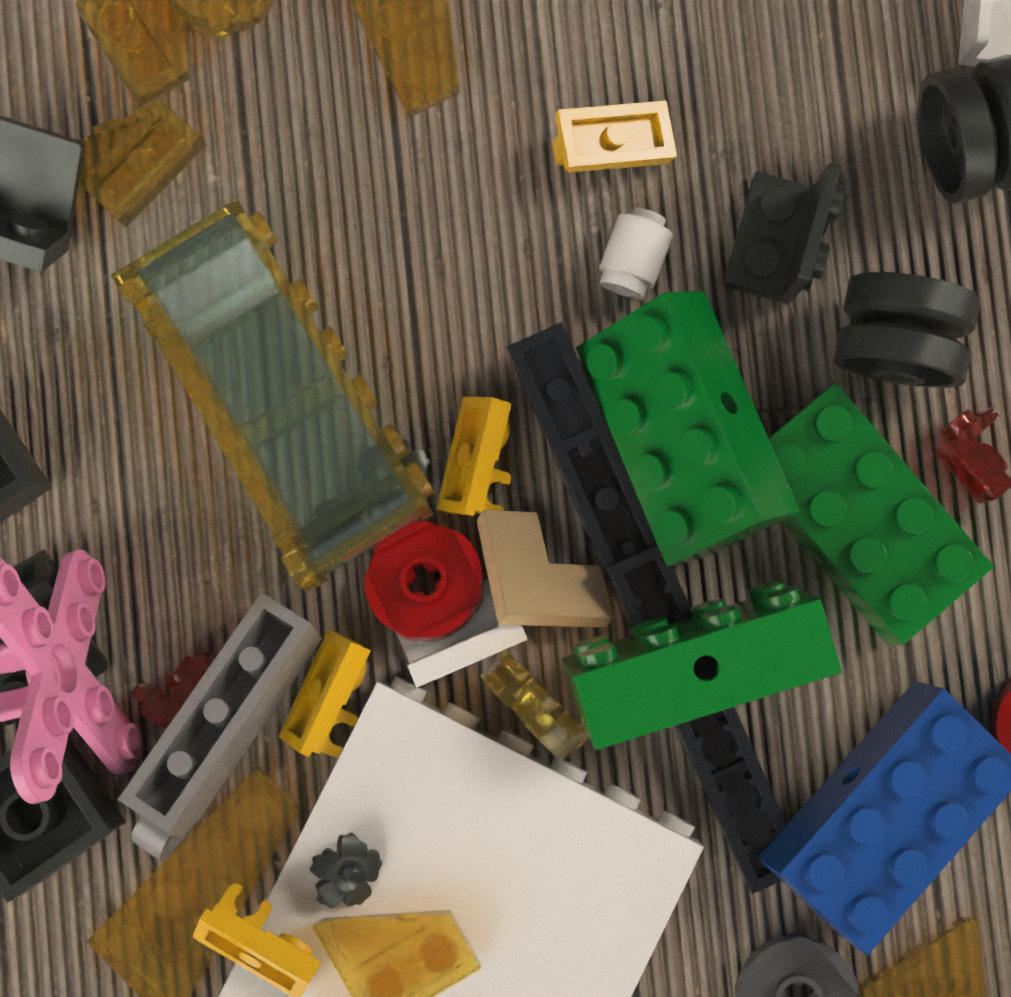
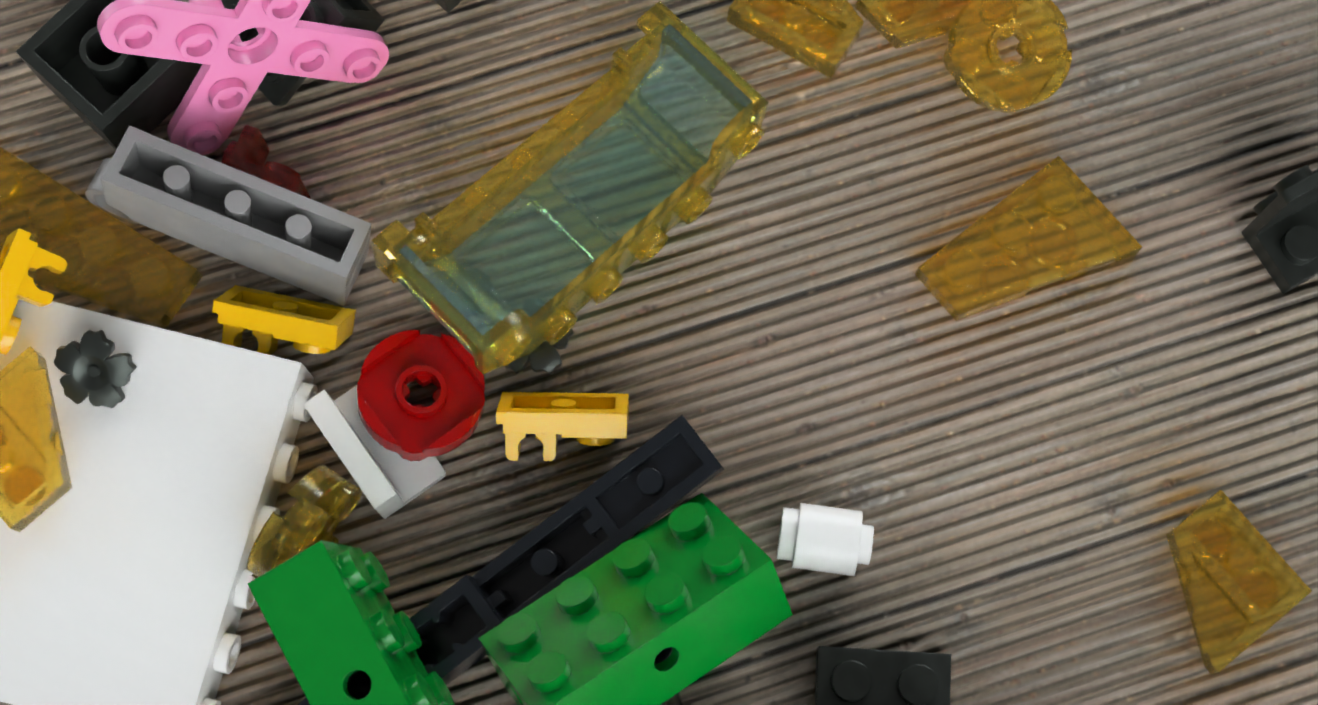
camera: 80 degrees right, 10 degrees down
(529, 587) = (430, 506): tan tile -> none
(614, 136) = (946, 488): plate -> none

